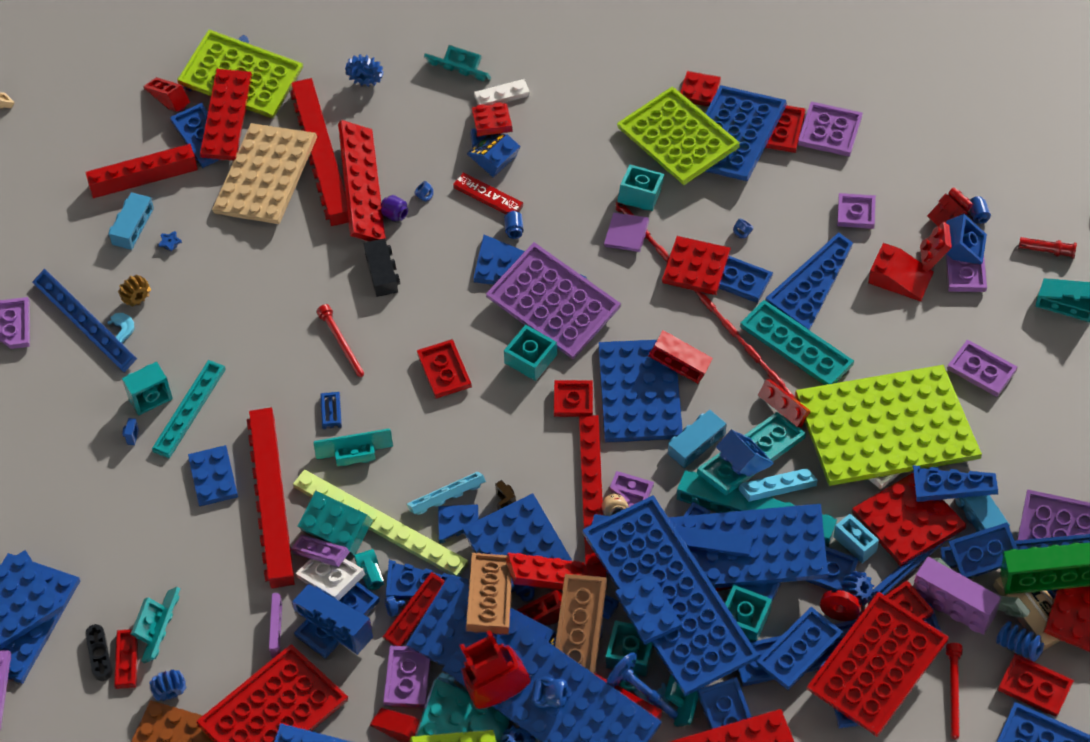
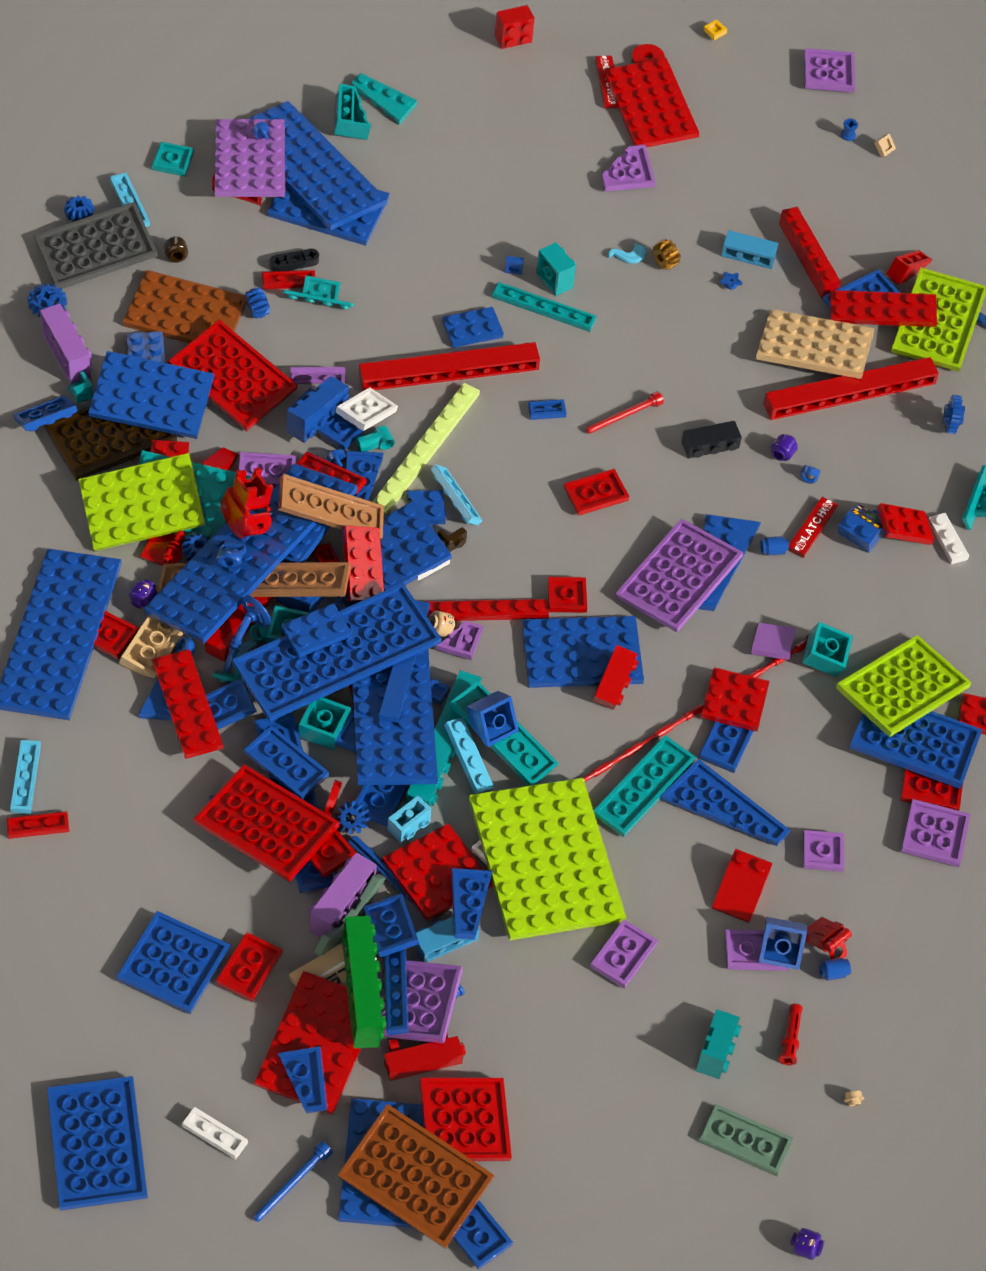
camera: 80 degrees right, 0 degrees up
(84, 320) = (634, 225): blue tile -> none
(320, 550) = (390, 401): medium lavender tile -> none
(335, 522) = (418, 410): teal brick -> none
(354, 447) = (501, 425): teal bracket -> none
(361, 182) = (813, 419): red plate -> none
(530, 352) = (614, 556): teal brick -> none
(696, 438) = (524, 693): dark azure brick -> none
(744, 226) = (791, 745): blue tile -> none
(784, 403) = (567, 766): red plate -> none
(935, 246) = (772, 911): red plate -> none
(954, 652) = (285, 899): red piece -> none
(1019, 642) = (293, 953): blue piece -> none

